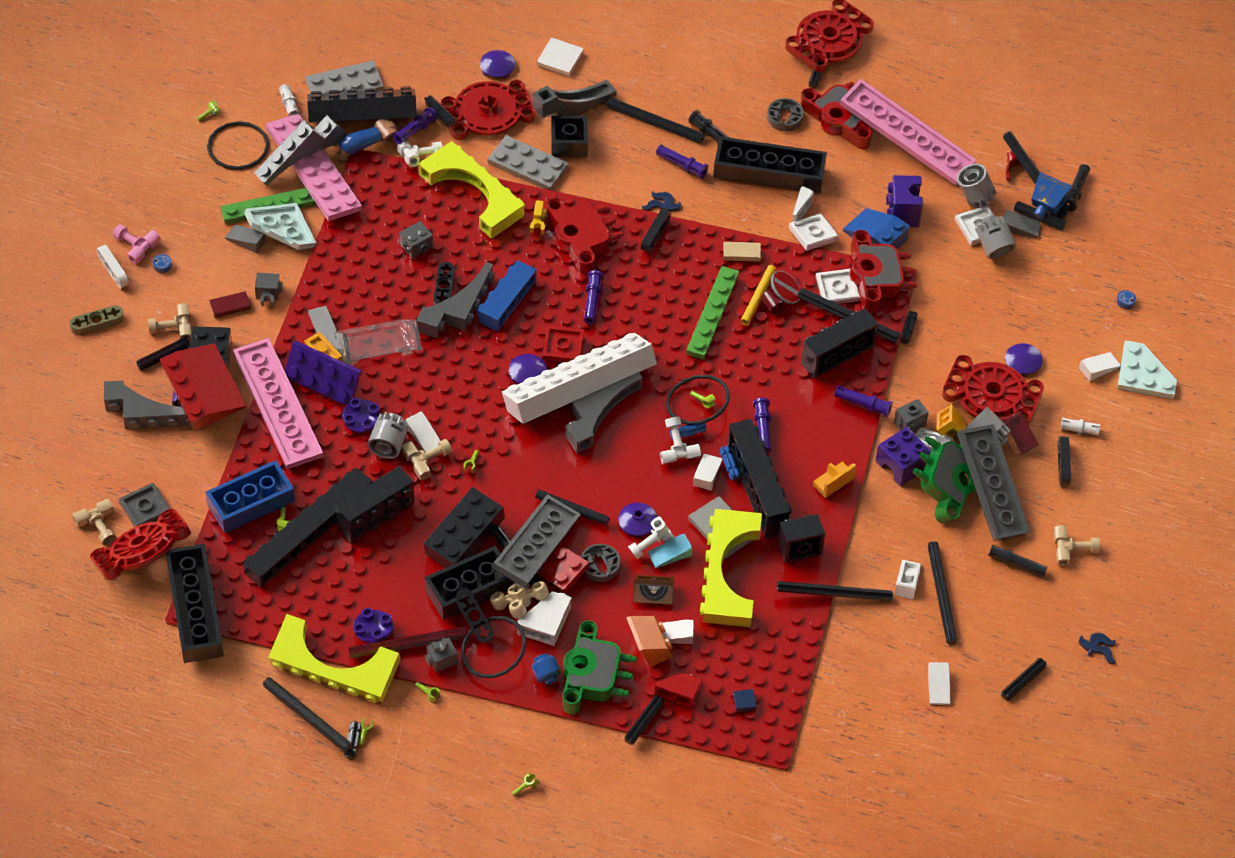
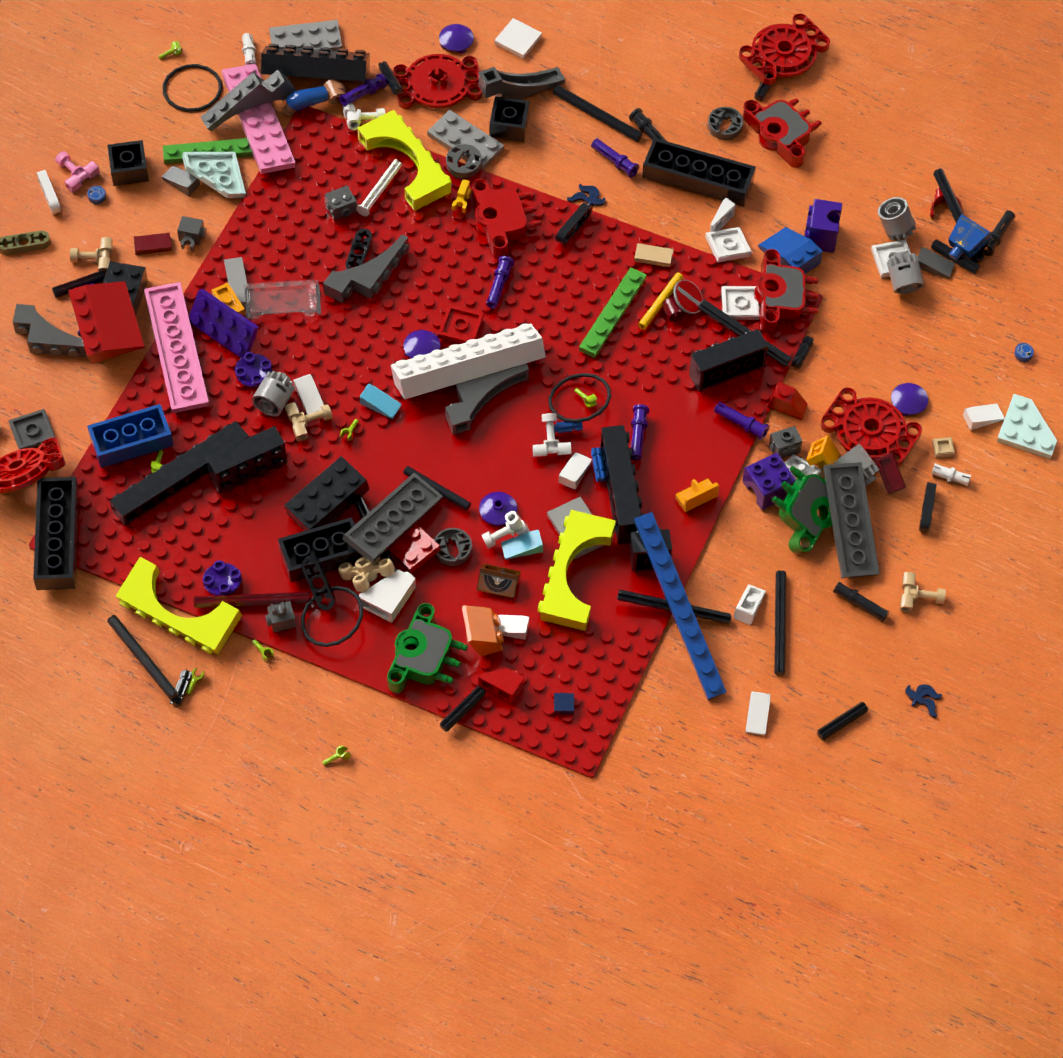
camera: 10 degrees right, 5 degrees up
(189, 227) = (127, 163): none -> black brick
(440, 242) = (364, 208): none -> white axle
(496, 430) = (379, 401): none -> medium azure slope
(507, 295) = (416, 269): blue brick -> none
(541, 187) = (471, 167): none -> dark grey piece
(546, 669) = (378, 645): blue head -> none
(842, 588) = (679, 606): none -> blue plate
(904, 375) = (787, 401): none -> red slope
(906, 131) = (839, 154): bright pink plate -> none
(1066, 401) = (943, 447): none -> tan tile

